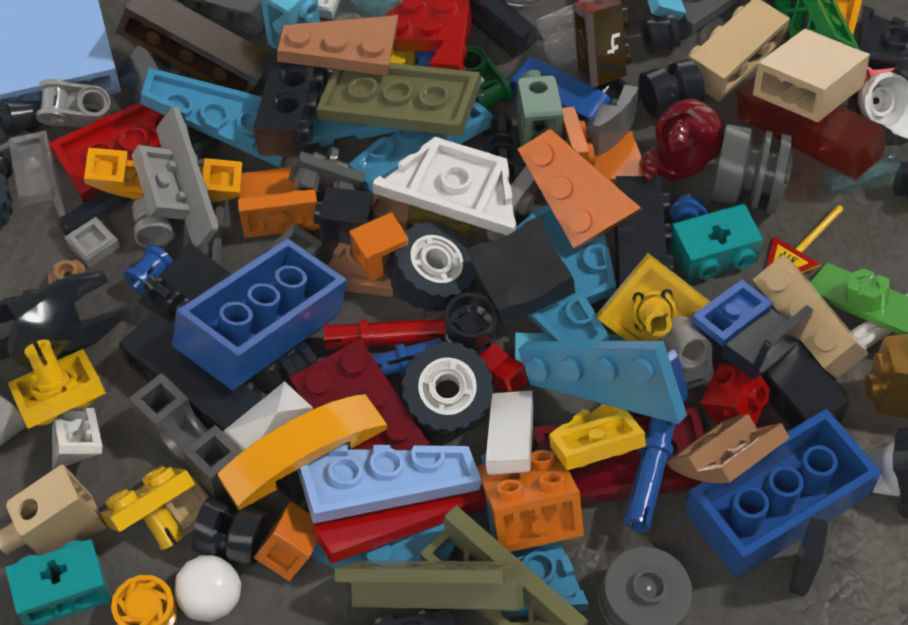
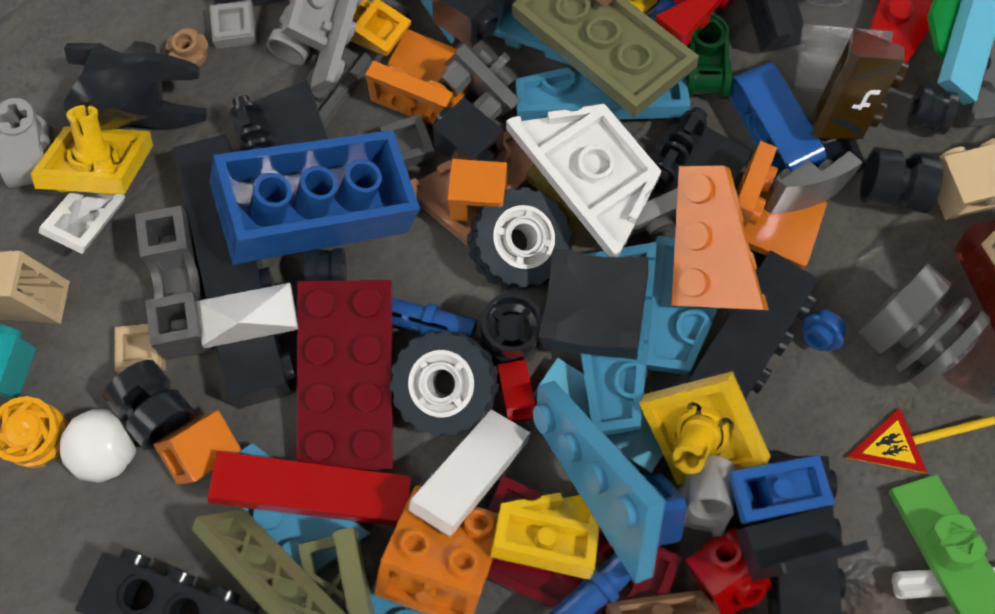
camera: 30 degrees right, 15 degrees up
(149, 503) = (91, 329): yellow plate -> none
(154, 258) = (257, 76): blue bush -> none
(298, 443) = (255, 364): light orange slope -> none
(383, 333) = (422, 277): red pin -> none
(384, 478) = (296, 437): light blue wing -> none
(537, 101) = (737, 128): sand green torso -> none
(687, 138) = (878, 251): dark red hair -> none
(716, 243) = (854, 378): teal brick -> none
(825, 333) = (871, 512): tan brick -> none

